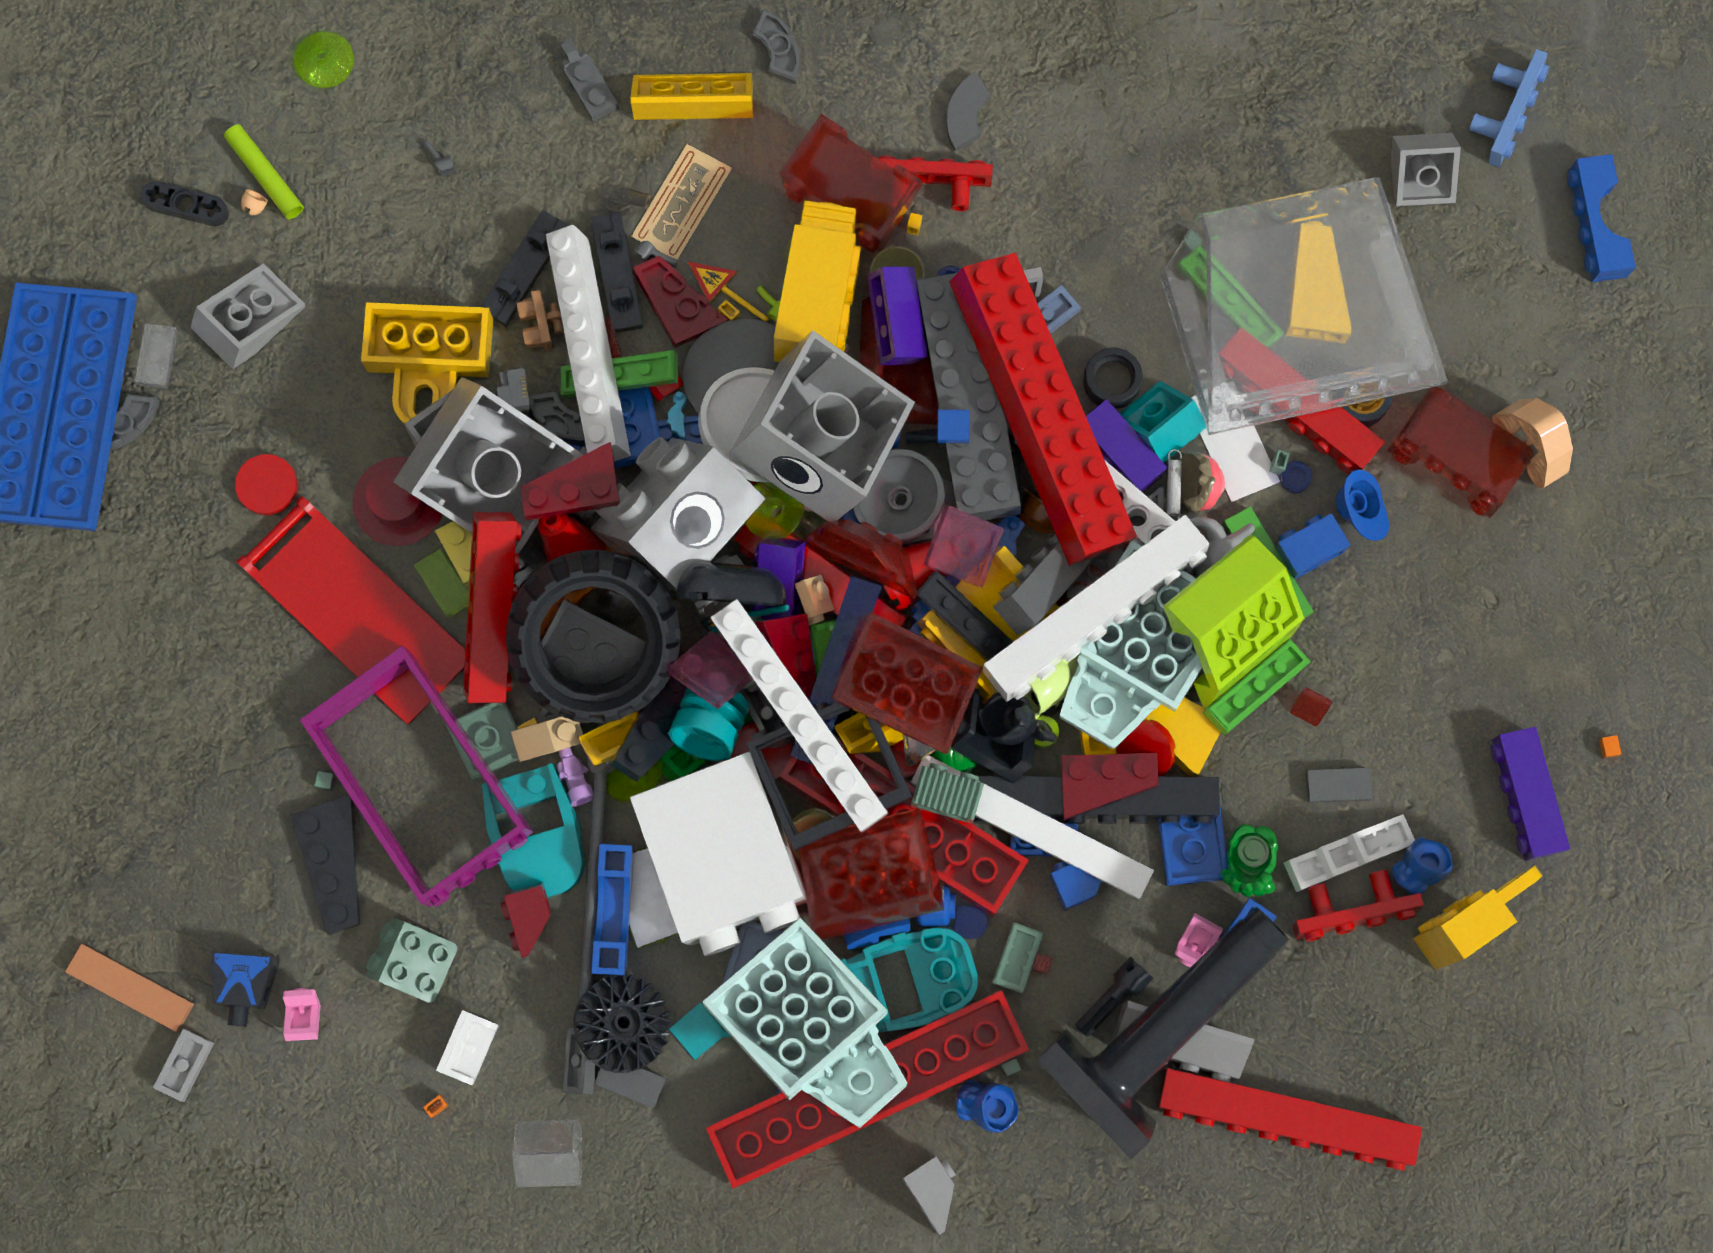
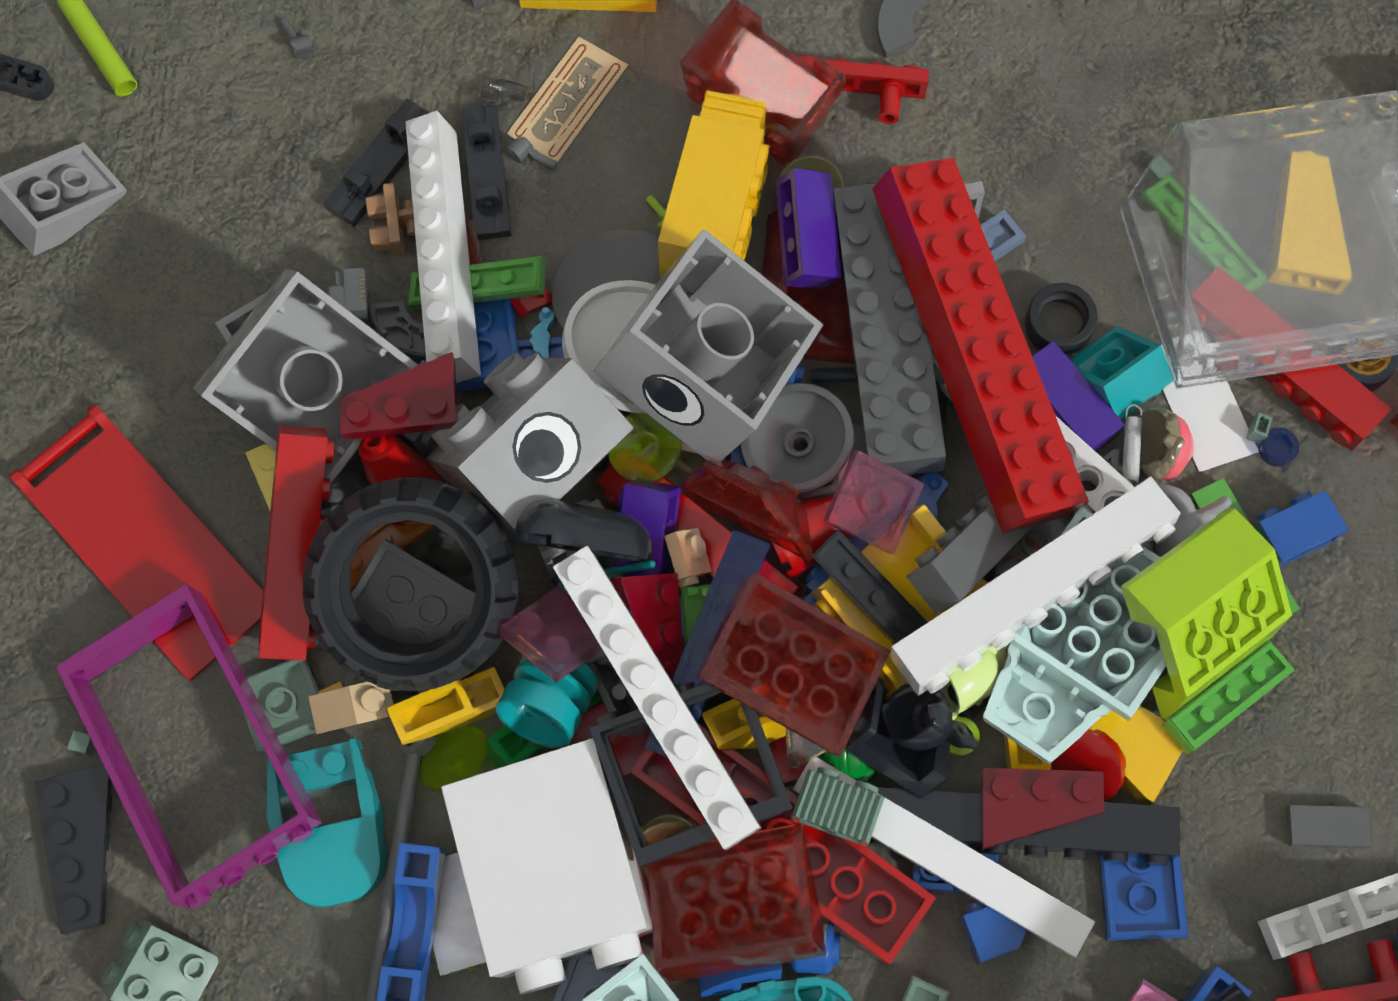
camera: 10 degrees right, 5 degrees down
(253, 201) = (80, 75): light nougat hinge -> none
(266, 484) = (56, 389): red tile -> none
(389, 511) = (195, 429): dark red hose -> none
(425, 348) = (254, 239): yellow brick -> none
(443, 583) = (247, 513): clear neon green tile -> none
(528, 914) = (306, 925): dark red slope -> none
(572, 770) = (380, 749): lavender piece -> none
(649, 734) = (471, 712): black wing -> none
(677, 305) = (550, 208): dark red wing -> none
(714, 280) = (597, 186): piece -> none
(729, 310) = (611, 220): yellow piece -> none
(914, 224) = (834, 134): yellow piece -> none
(953, 426) = (869, 357): blue tile -> none
(970, 922) = (857, 971): clear blue tile -> none
(1034, 513) = (963, 472): reddish brown piece -> none
(1251, 860) = (1218, 917): green hair -> none
(1310, 706) = (1294, 725): clear red slope -> none
(1362, 505) = (1361, 483): blue piece -> none

